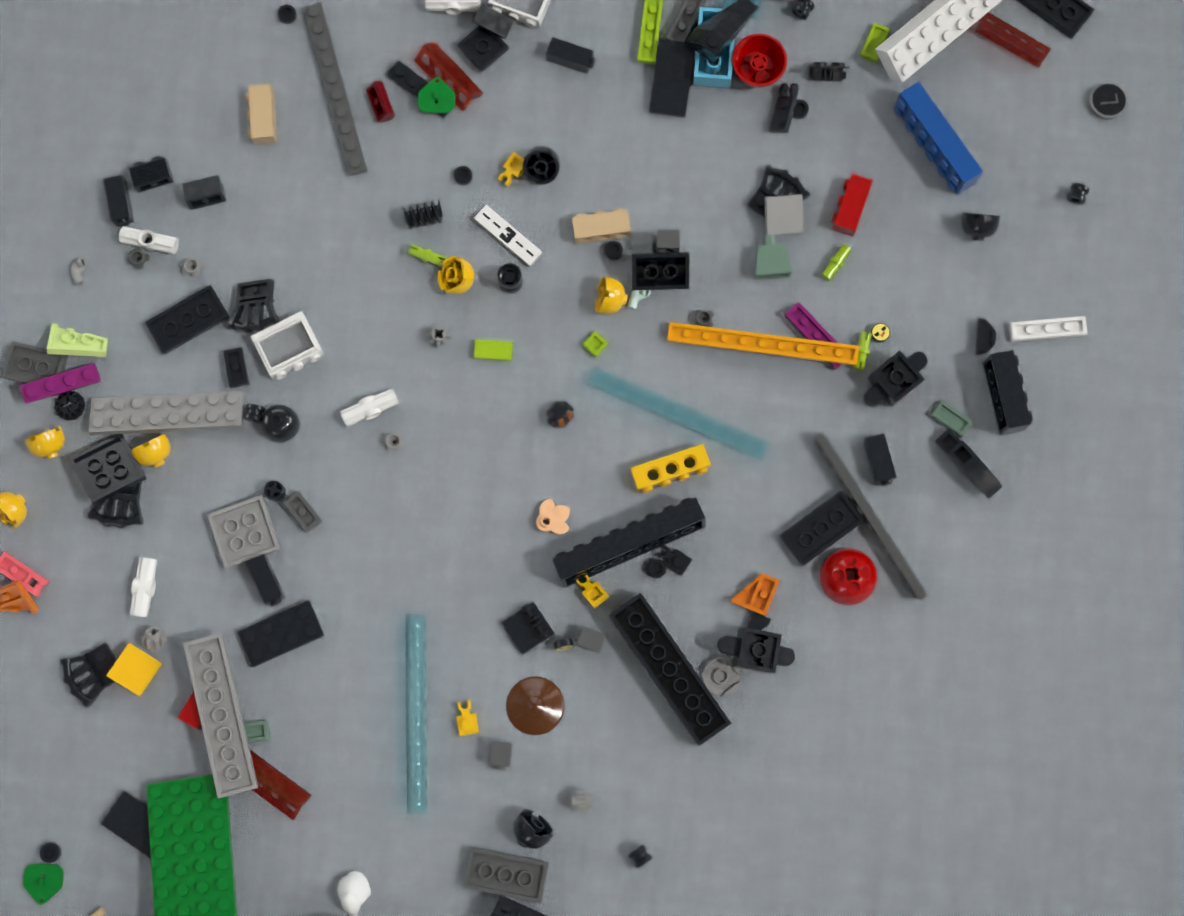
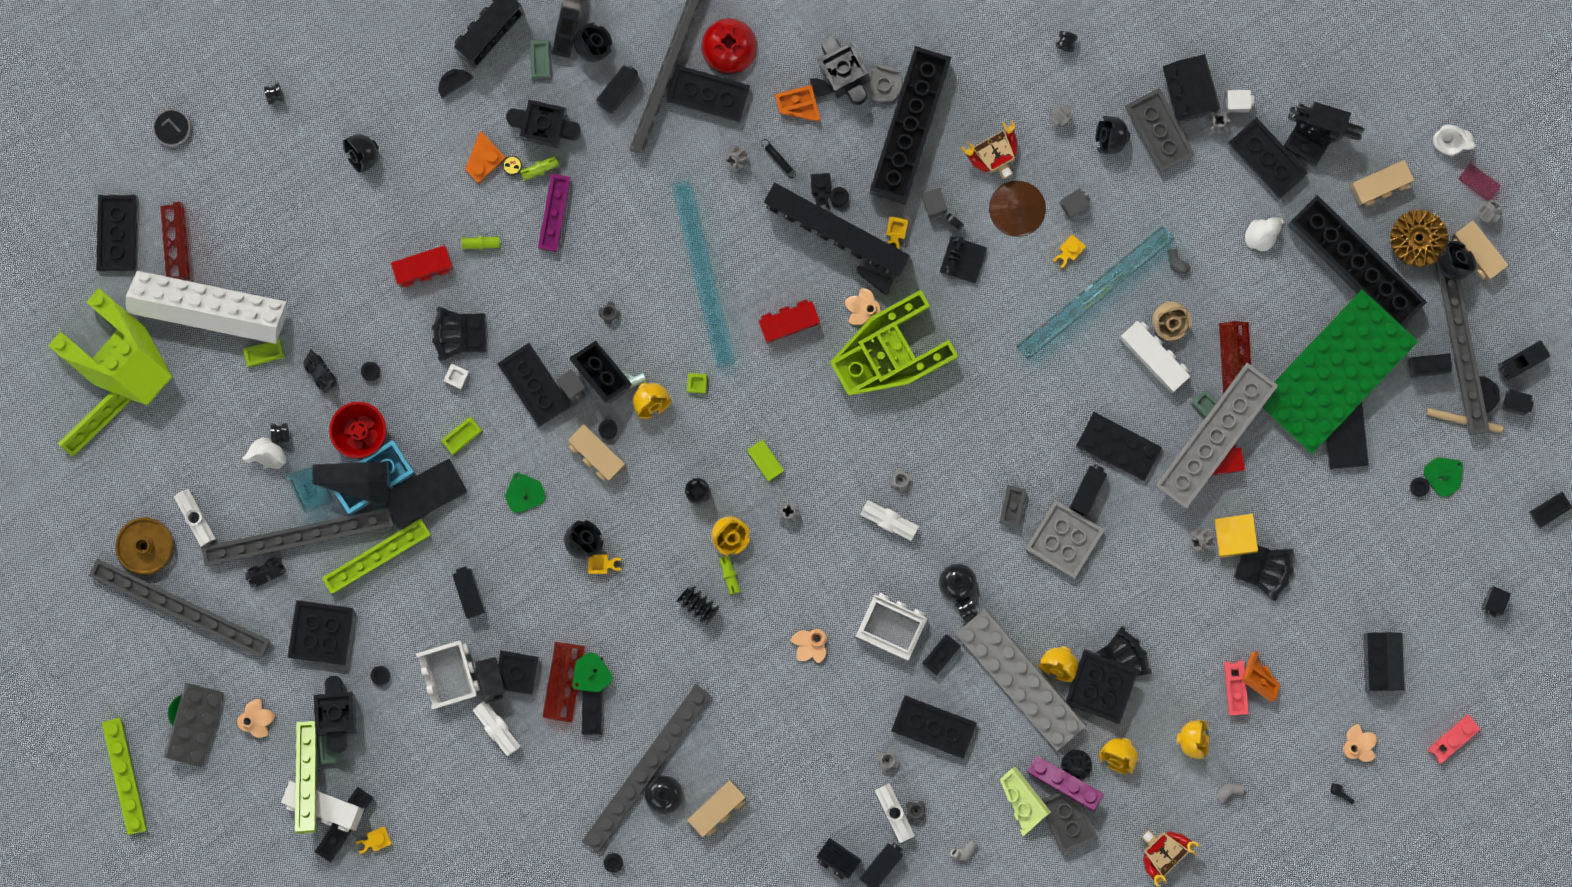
camera: 130 degrees left, 5 degrees up
(143, 587) = (1169, 582): white piece -> none
(204, 192) = (819, 801): black hinge -> none
(248, 296) = (869, 685): black plate -> none
(271, 488) = (1014, 537): black wheel -> none
(305, 85) = (663, 794): none -> black cylinder
(325, 274) = (808, 647): none -> light nougat plate
(326, 719) = (1154, 356): none -> white brick
(343, 755) = (1171, 320): none -> tan cylinder
(380, 102) = (630, 719): dark red brick -> none
(386, 799) = (1177, 264): none -> dark grey arm
(463, 175) = (639, 601): black tile -> none
(502, 498) = (880, 355): none -> lime wedge
(508, 235) = (661, 524): white tile -> none
(560, 414) = (776, 365): black head -> none
(567, 543) = (879, 281): none -> black slope
(587, 450) = (788, 321): none -> red brick
(593, 721) = (995, 152): none -> torso
(620, 153) = (524, 487): none -> green piece
(694, 219) = (534, 385): none -> black plate
(695, 139) = (461, 435): none -> lime tile
(696, 454) = (773, 265): yellow brick -> none
(725, 544) = (778, 158): none -> black piece
(744, 167) = (456, 376): none -> white plate
(750, 509) = (736, 158): none -> light grey gear
(763, 343) = (595, 249): light orange plate -> none
(772, 260) = (519, 295): sand green torso -> none
(784, 108) = (381, 382): black hinge -> none
(784, 214) = (473, 313): light grey tile -> none
(903, 315) = (483, 158): none -> orange wing
(933, 466) = (592, 42): none -> black cylinder
(937, 138) = (314, 237): blue brick -> none
(1048, 329) = (407, 37): white tile -> none

